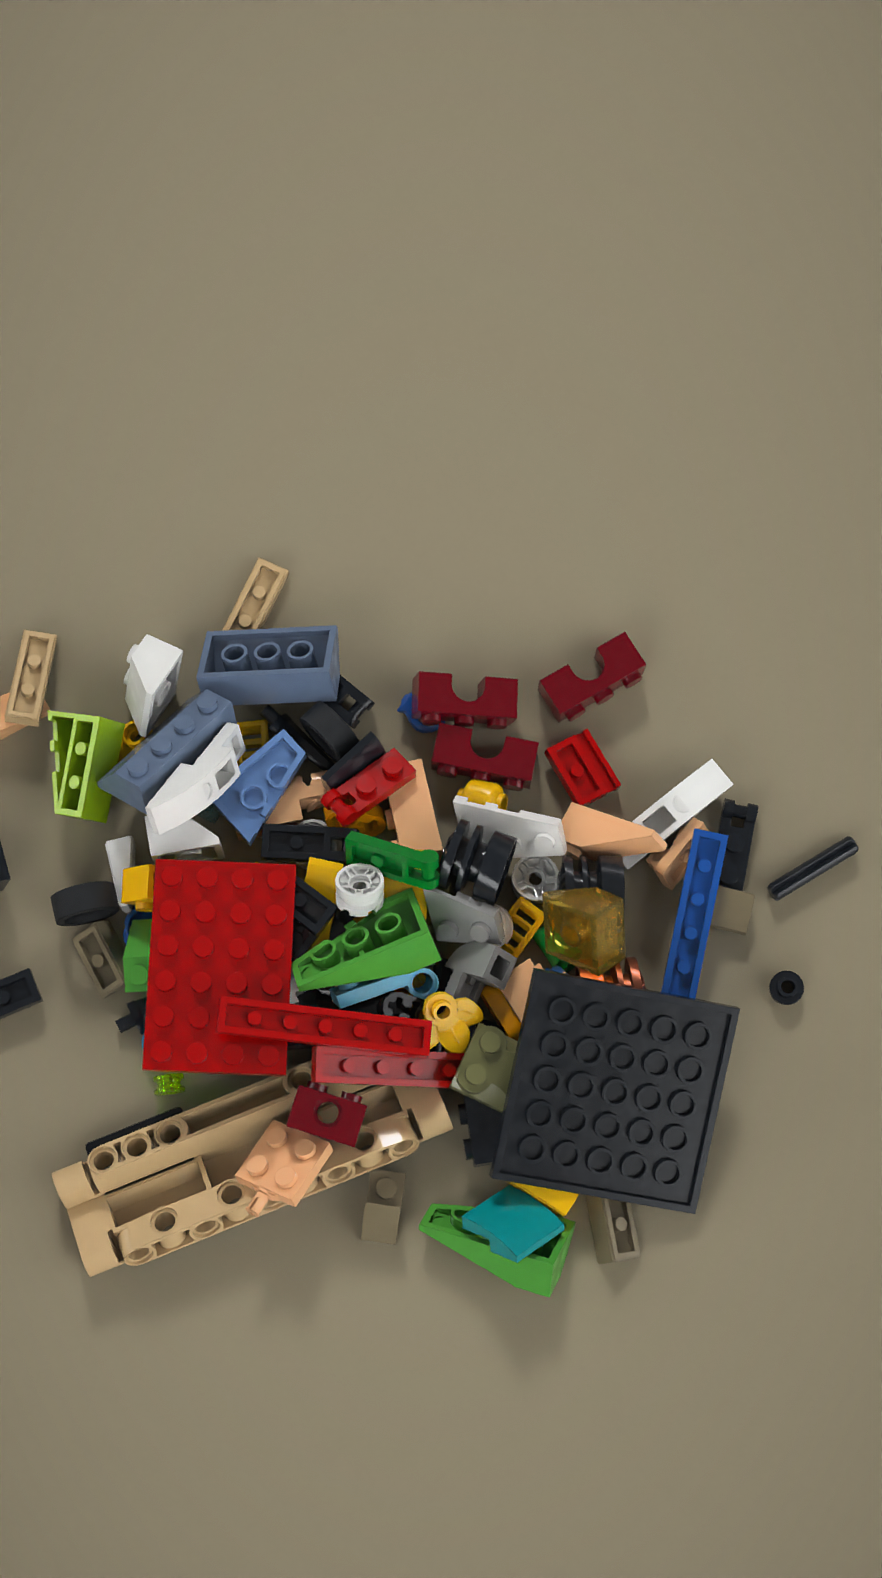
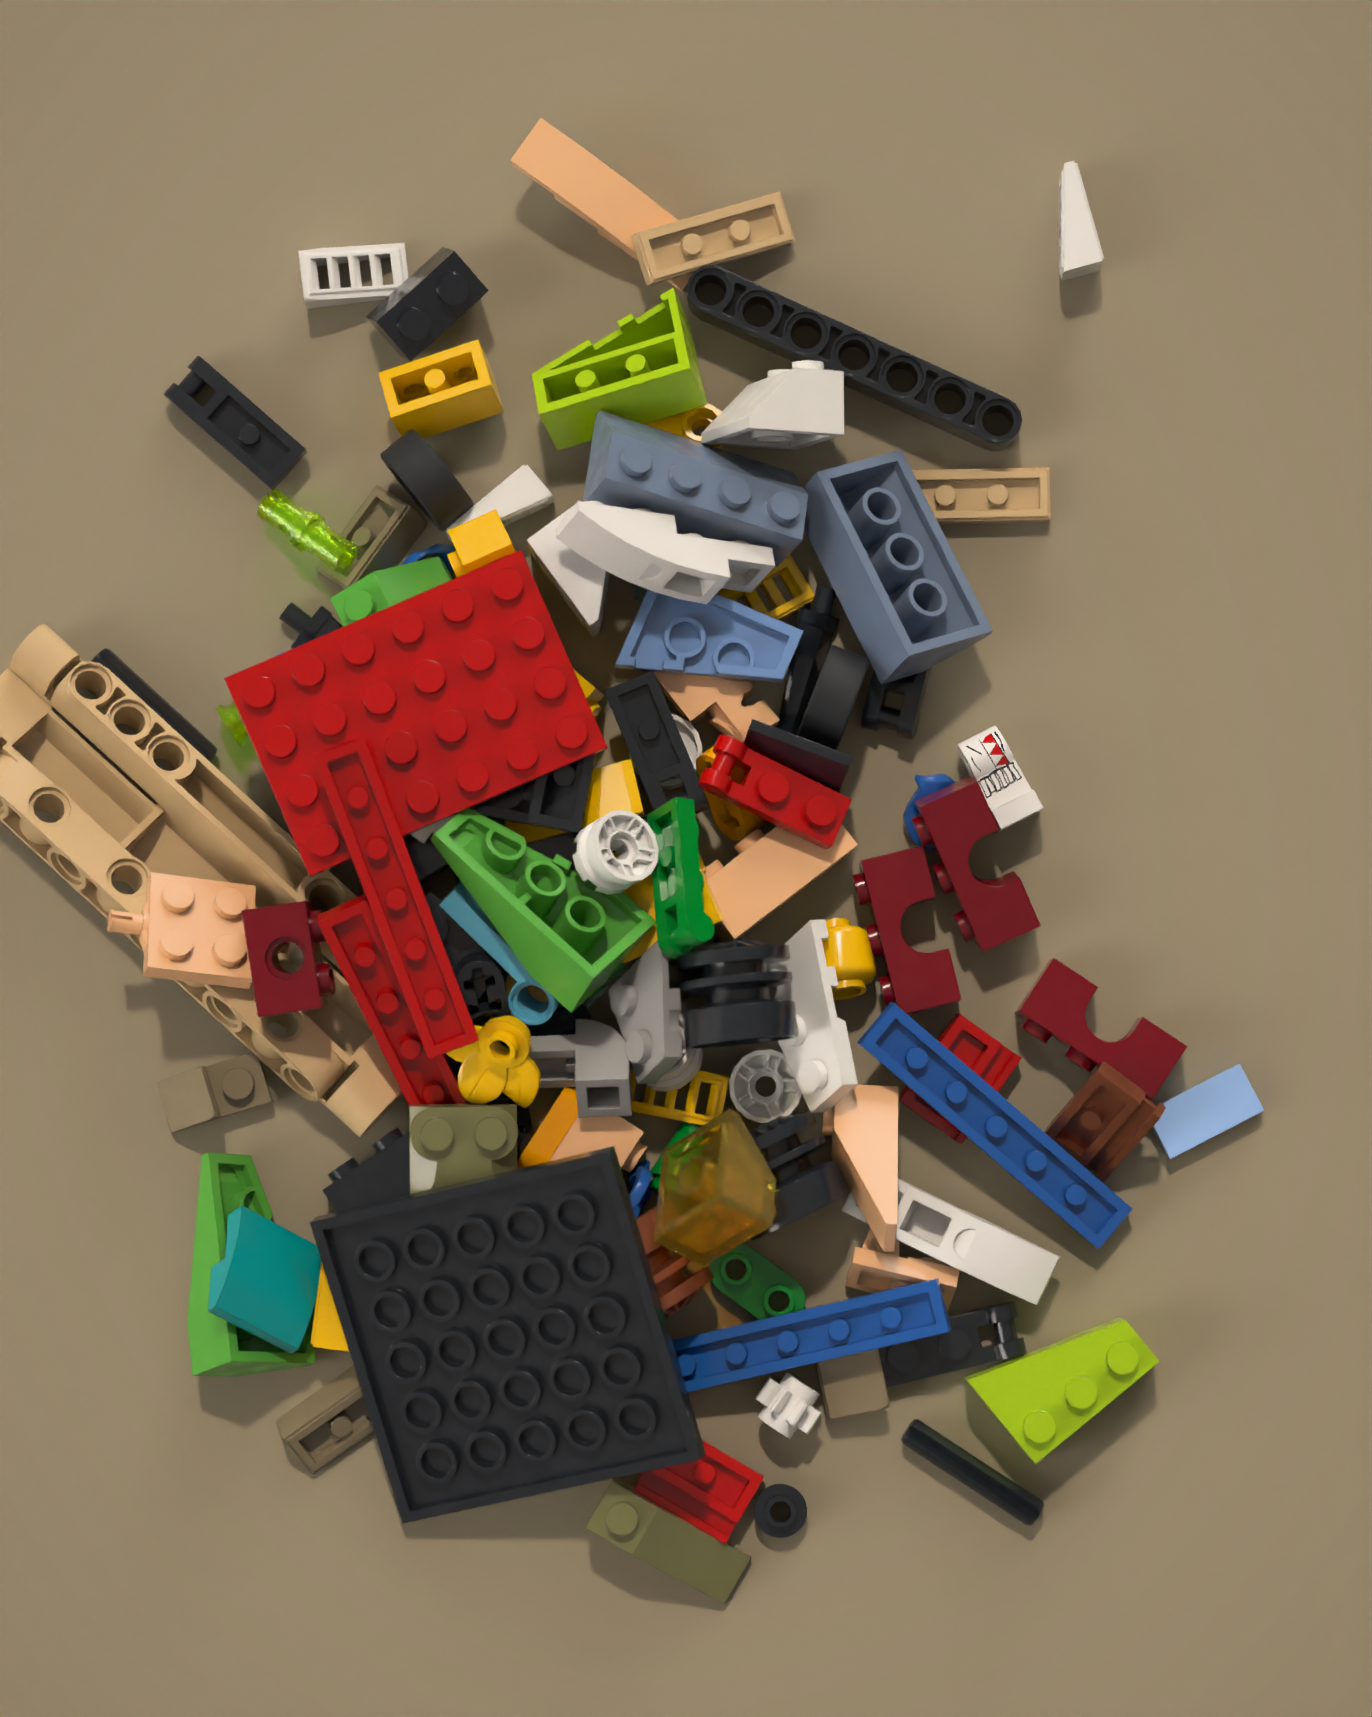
camera: 70 degrees right, 10 degrees up
(37, 870) = (441, 391): none -> yellow brick
(78, 989) = (307, 531): none -> clear neon green pin
(135, 479) = (1078, 239): none -> white slope
(146, 618) = (837, 337): none -> black beam
(407, 663) = (999, 777): none -> white leg
(618, 759) = (994, 1125): none -> blue plate
(645, 698) = (1104, 1121): none -> copper plate
(648, 938) = (757, 1284): none -> green plate
(664, 644) = (1206, 1111): none -> light blue tile
(727, 952) = (788, 1405): none -> white gear
(757, 1026) = (705, 1491): none -> red plate
(774, 1062) = (666, 1541): none -> olive slope
(786, 792) = (1063, 1384): none -> lime wedge

